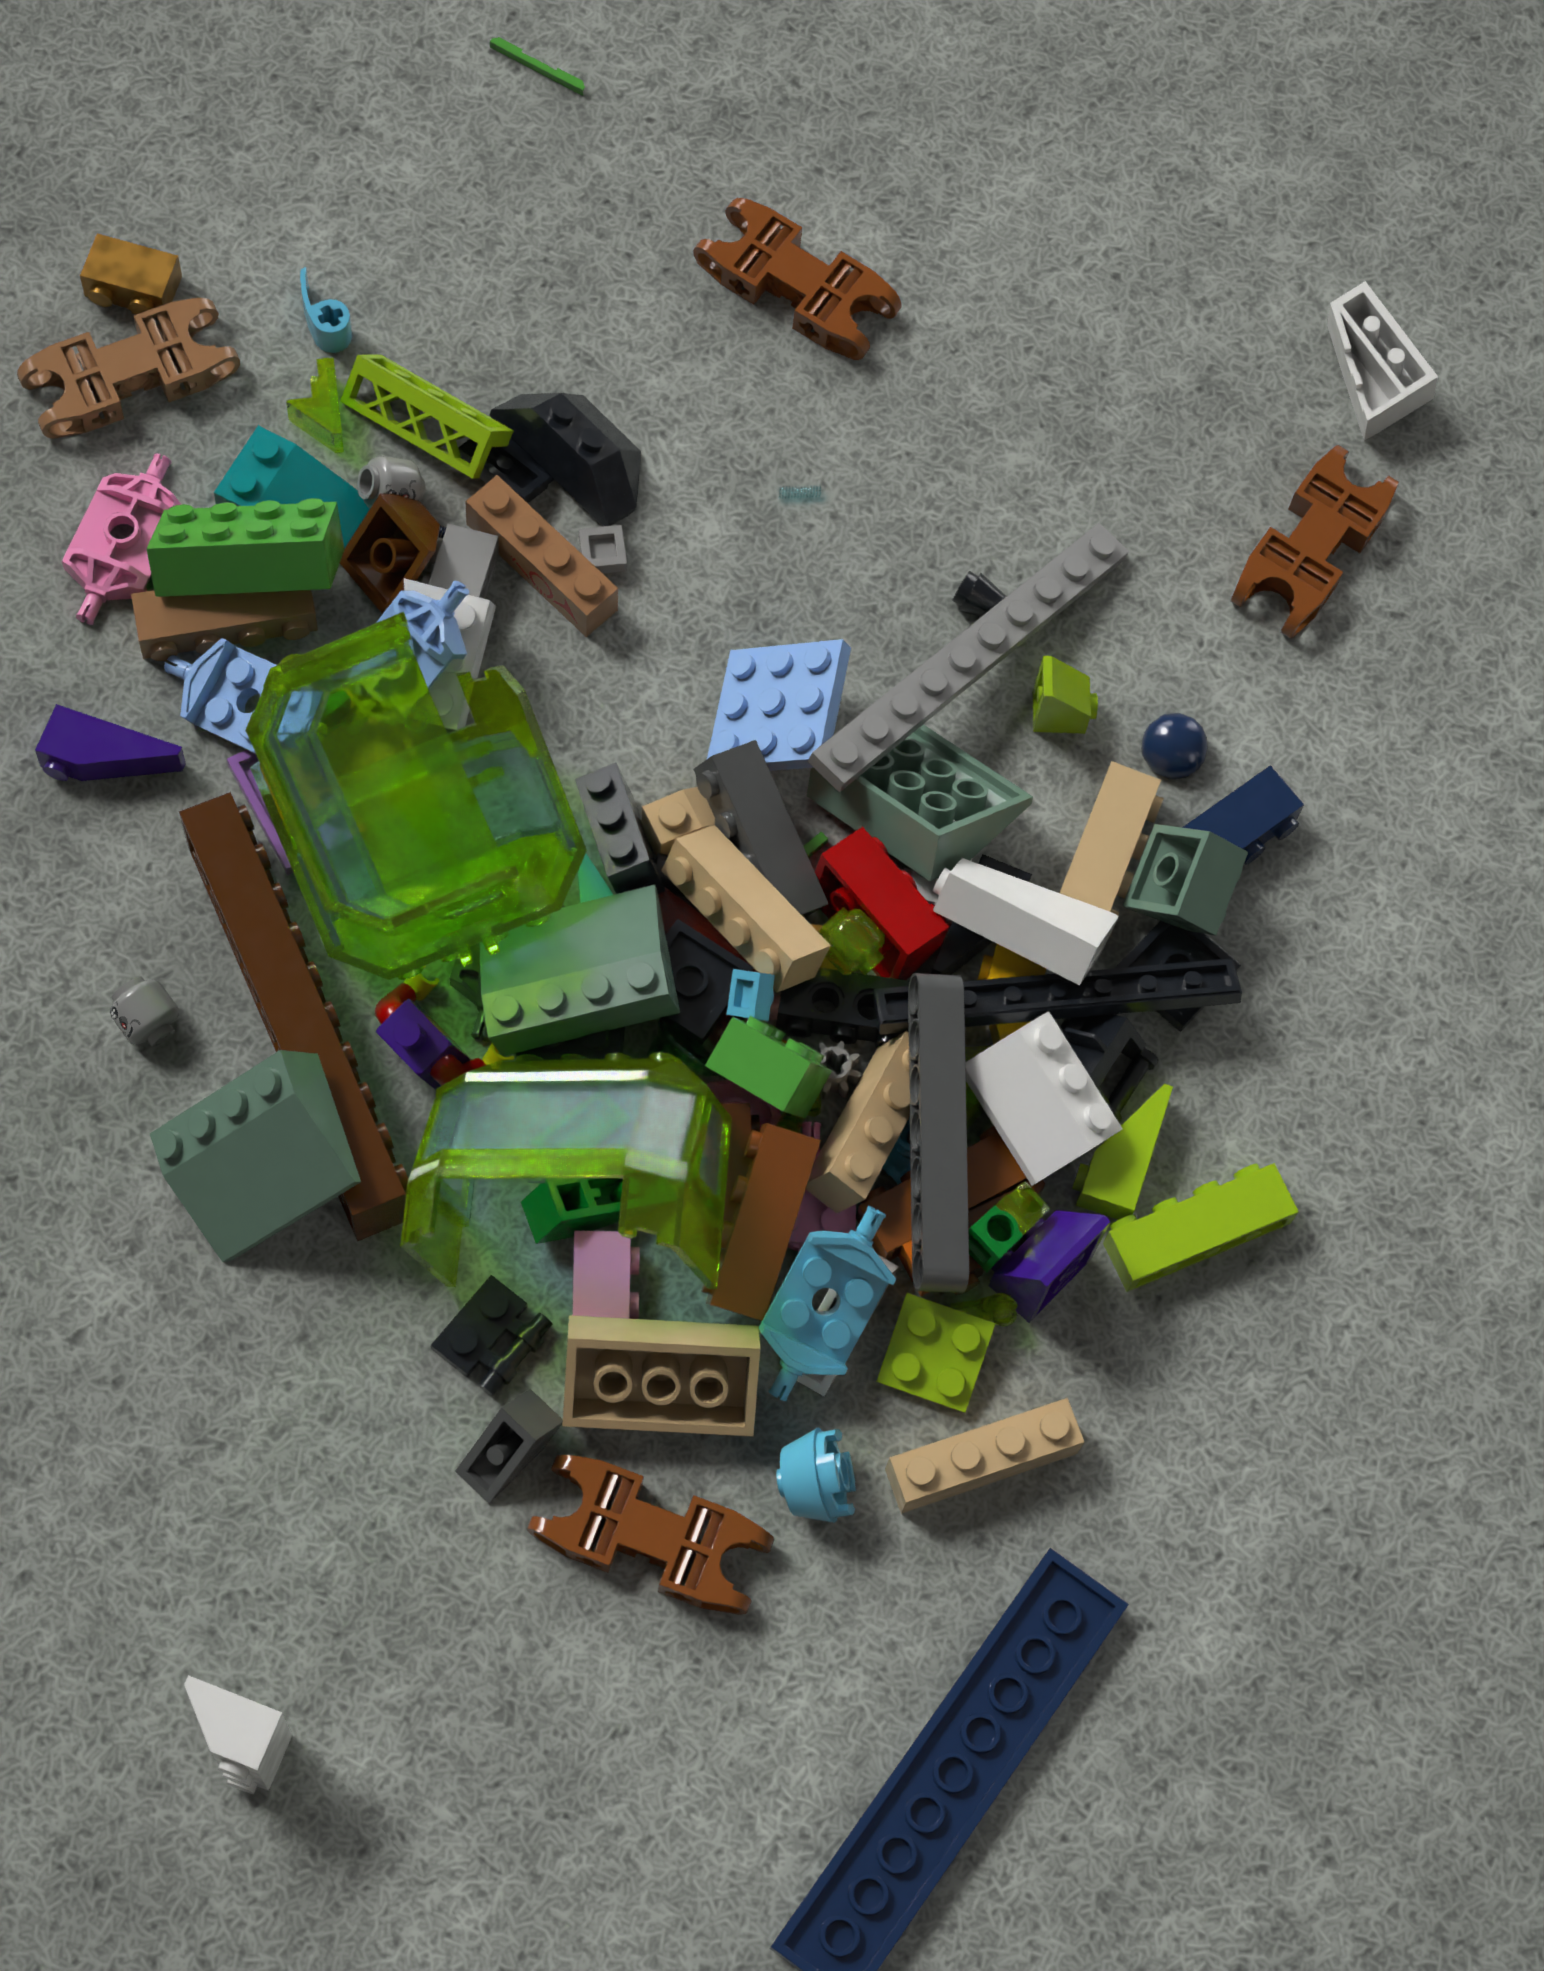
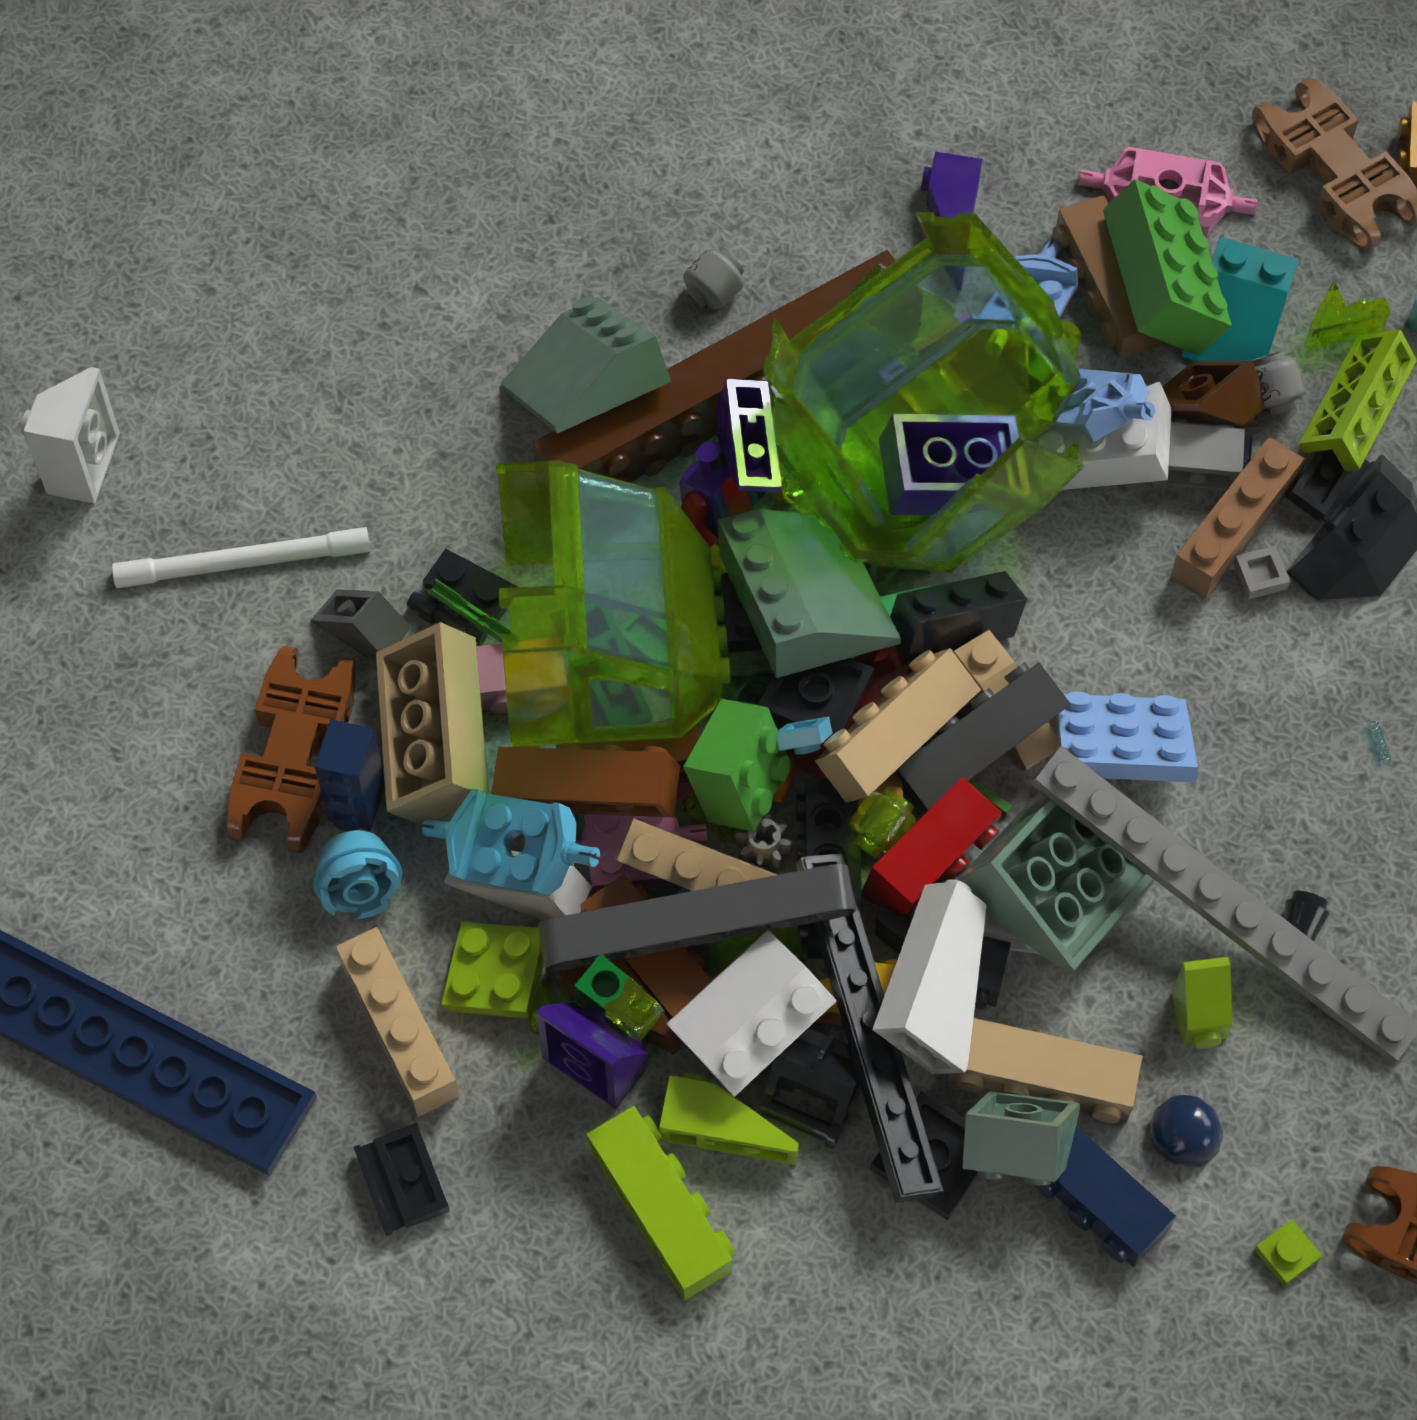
camera: 90 degrees right, 5 degrees down
(398, 1672) = (151, 570): none -> white piece
(402, 987) = (748, 435): none -> slope
(460, 797) = (936, 454): none -> dark purple slope
(531, 1318) = (469, 611): none -> bright green piece
(722, 1462) = (350, 775): none -> dark blue brick
(1147, 1473) = (401, 1179): none -> black plate
(1298, 686) = (1288, 1252): none -> lime plate

